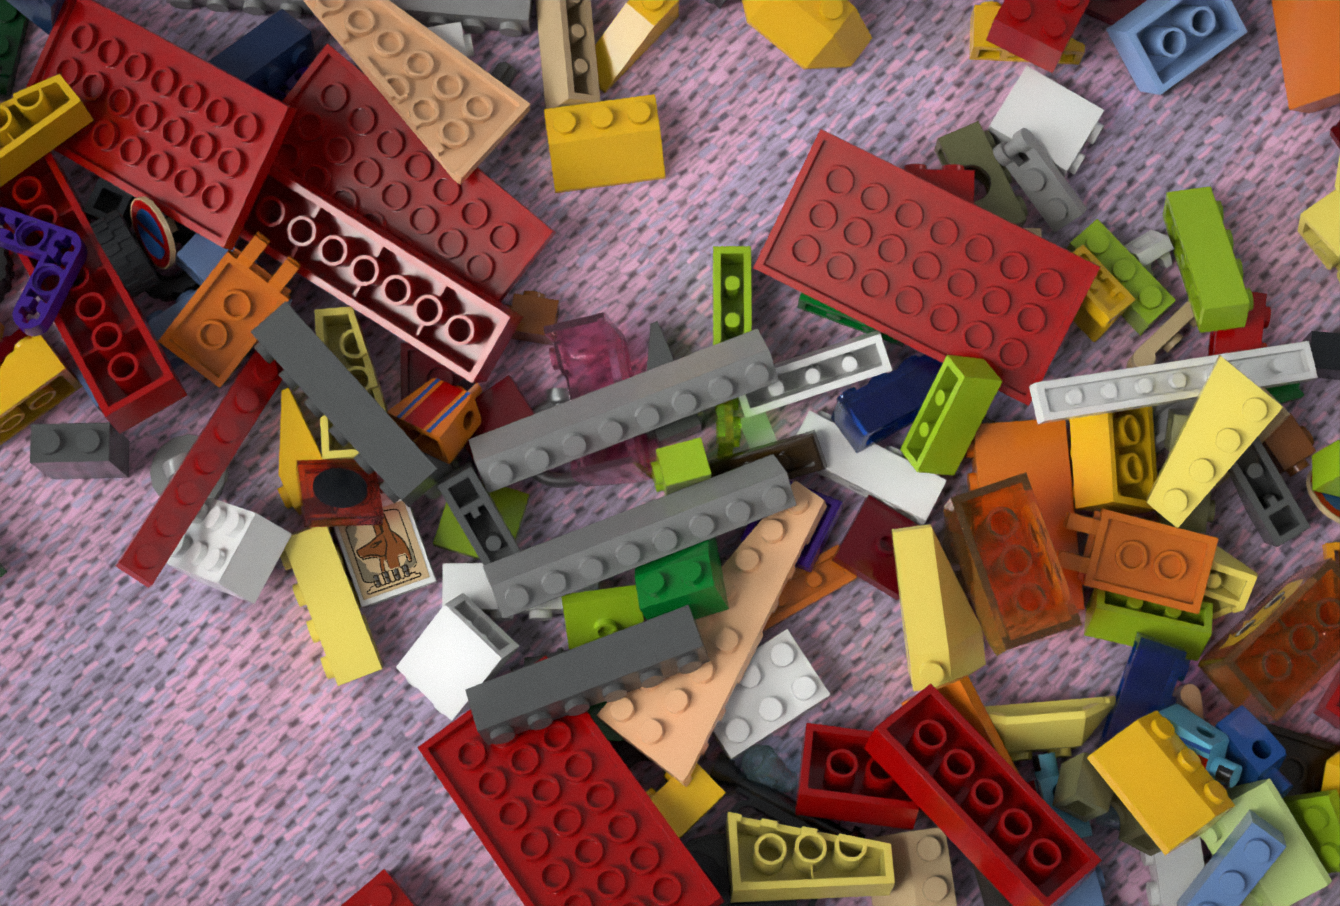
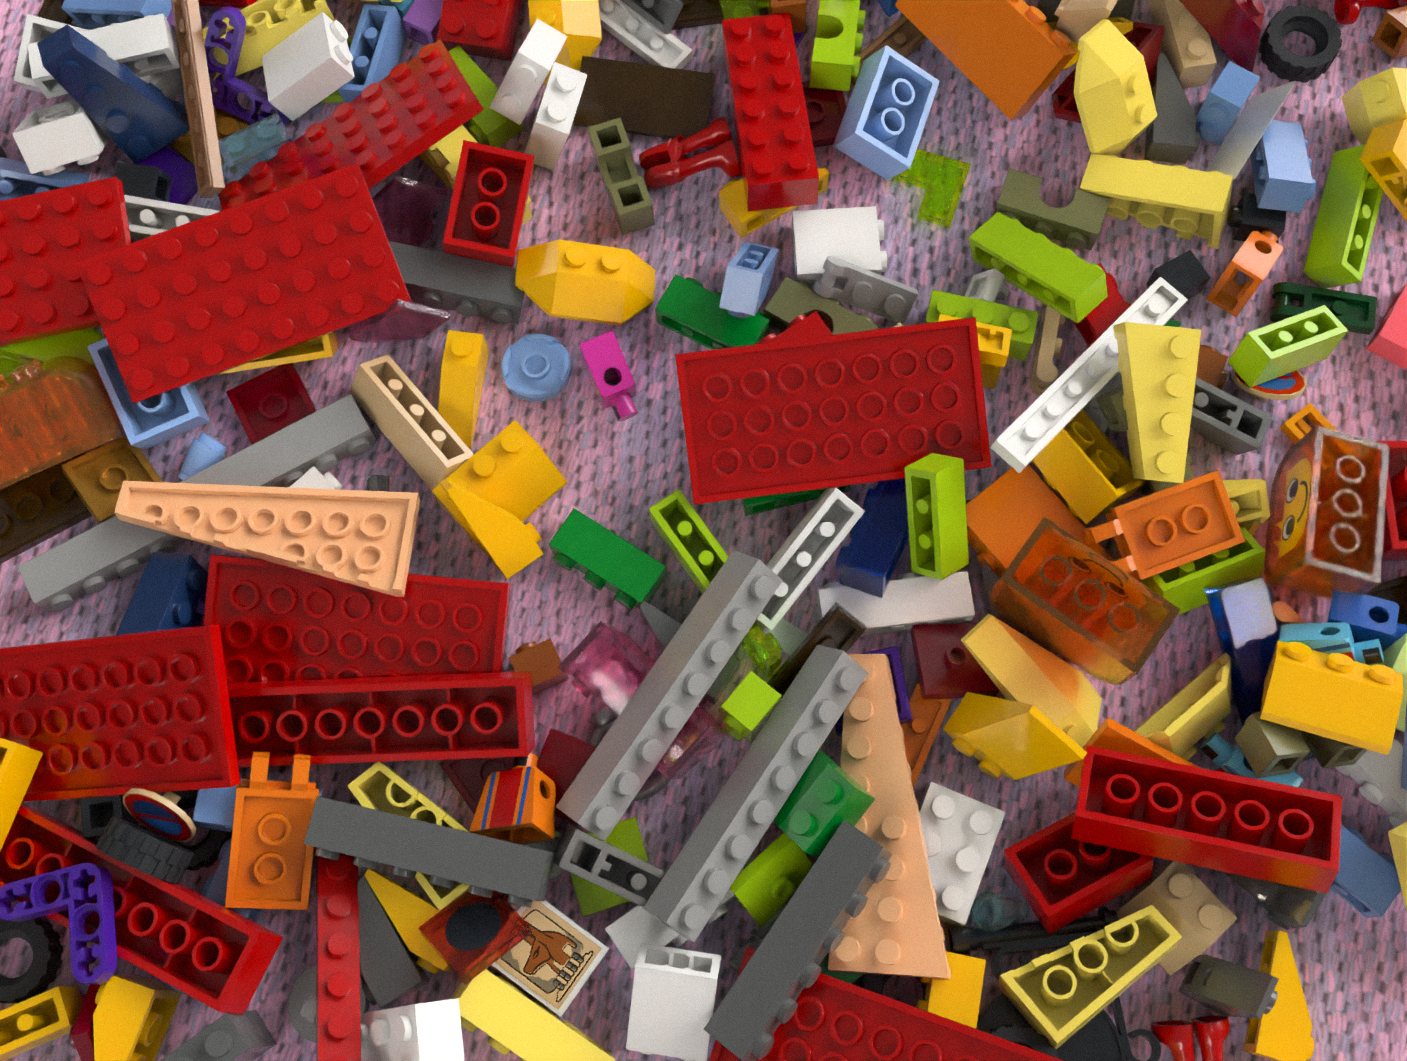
camera: 30 degrees left, 5 degrees down
(255, 467) = (384, 957): none -> dark grey slope
(576, 178) = (499, 532): none -> yellow slope
(651, 267) = (607, 560): none -> green brick
(709, 71) = (540, 377): none -> light blue tile
(764, 94) = (606, 363): none -> dark pink torso
(874, 636) = (1009, 737): none -> yellow slope
(888, 114) = (696, 315): none -> green brick
(940, 102) = (748, 279): none -> medium blue brick
(1187, 125) = (943, 184): none -> clear neon green plate
(1276, 243) = (1075, 224): none -> olive arch

